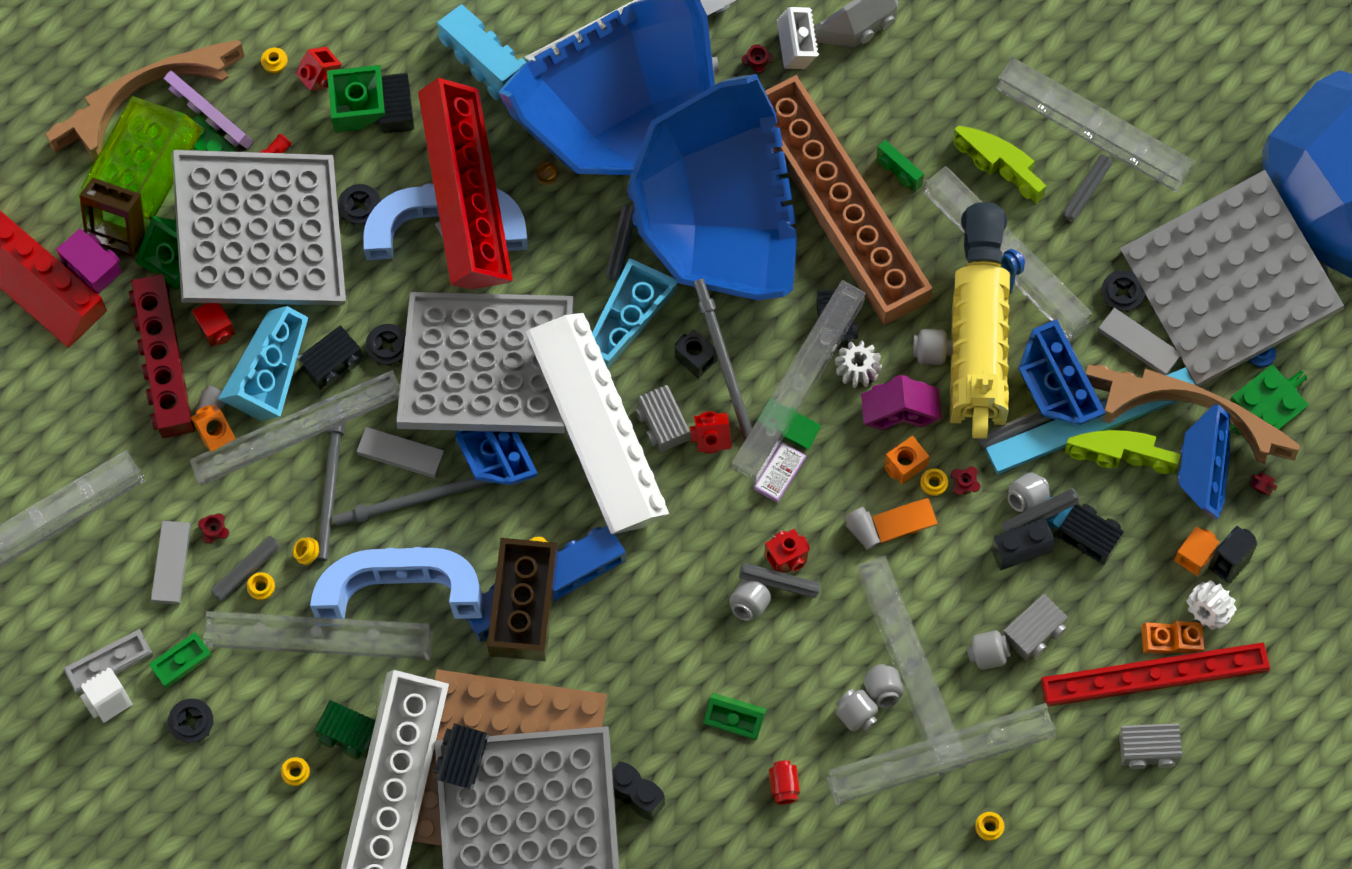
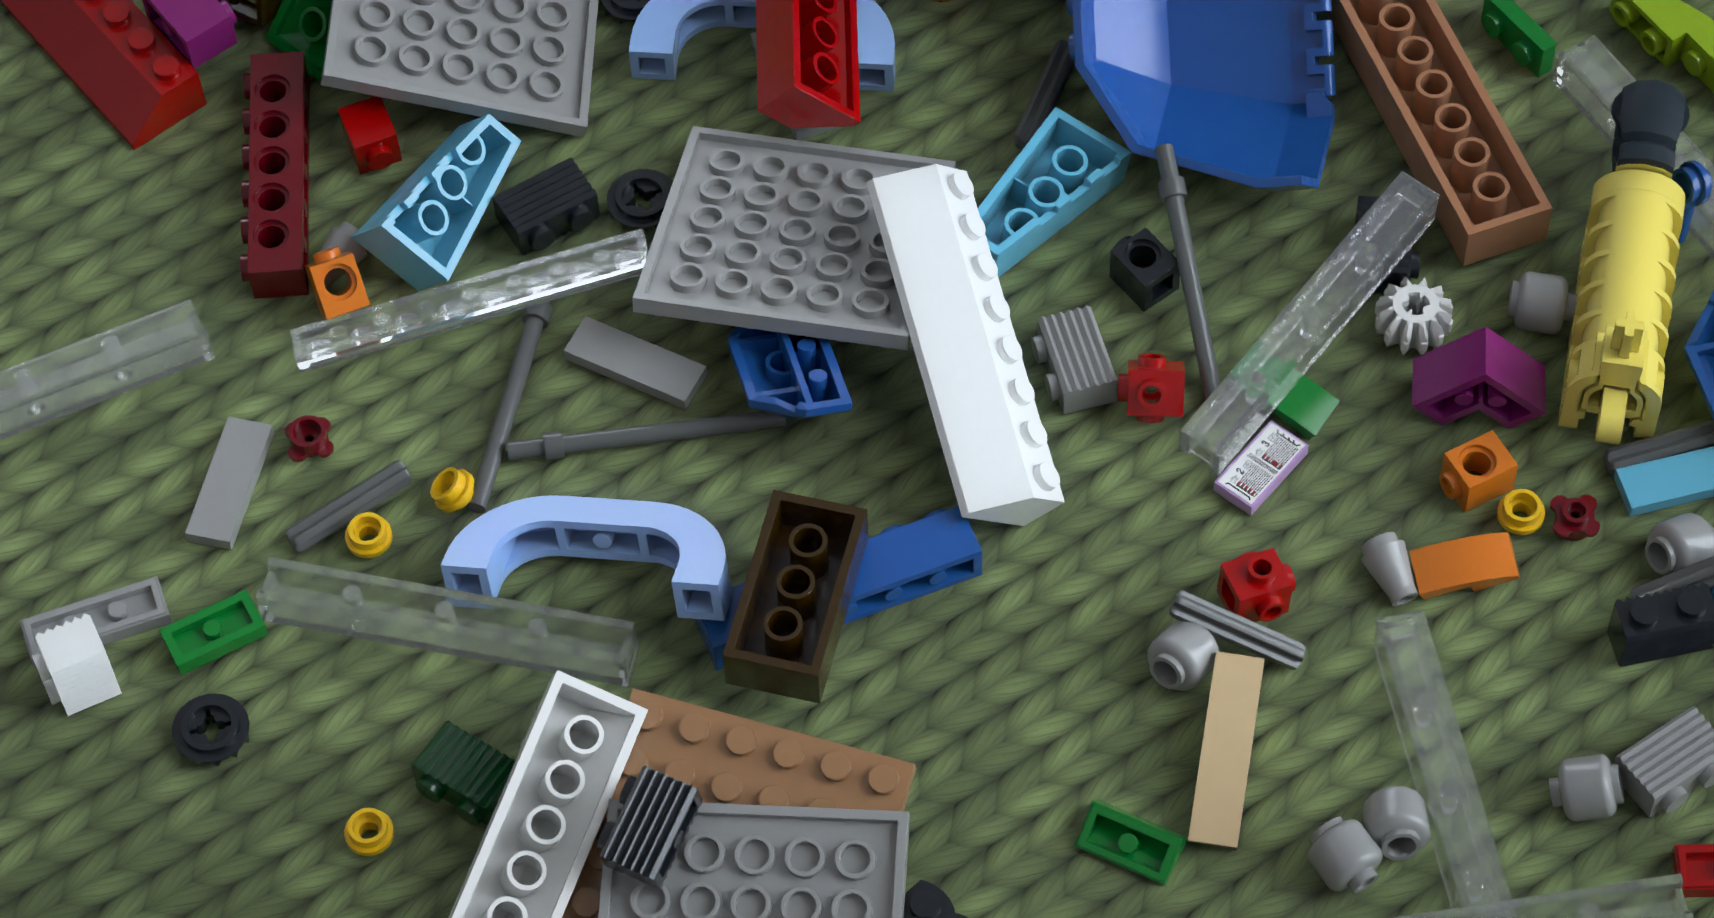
camera: 10 degrees right, 10 degrees down
(782, 655) = (1226, 750): none -> tan slope

